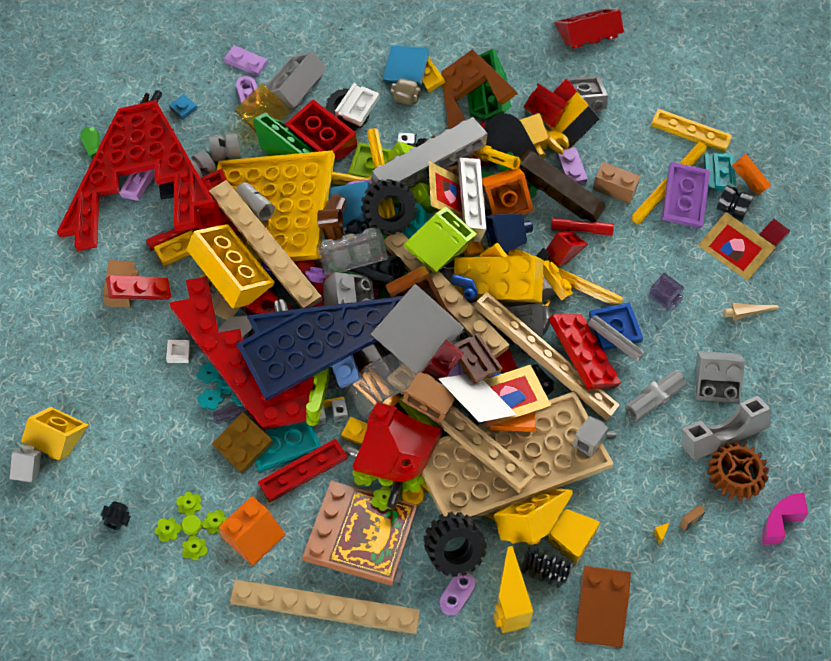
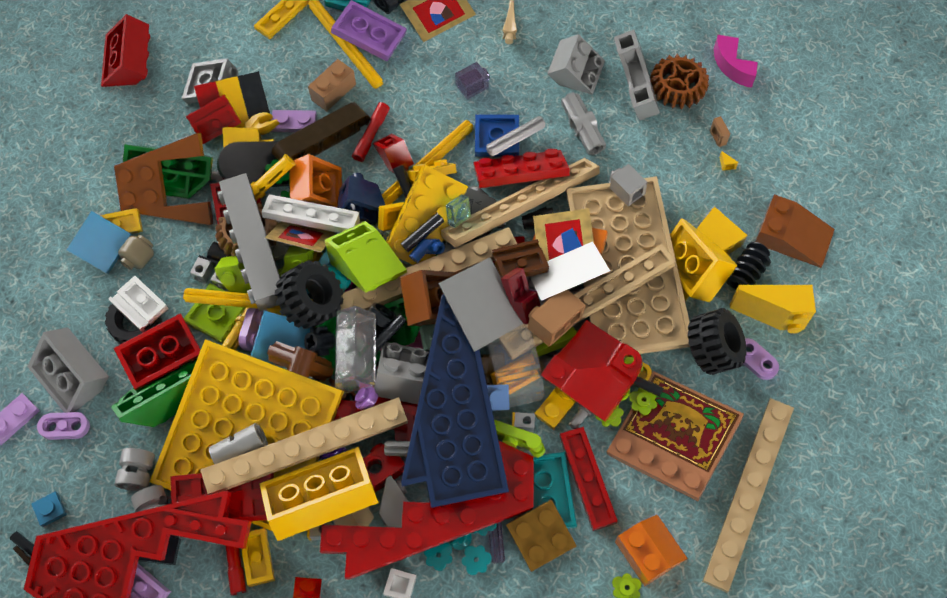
camera: 70 degrees left, 5 degrees up
(261, 102) = (94, 414): clear yellow plate -> none
(477, 276) = (422, 232): none -> black piece
(508, 298) = (458, 210): none -> clear light blue plate

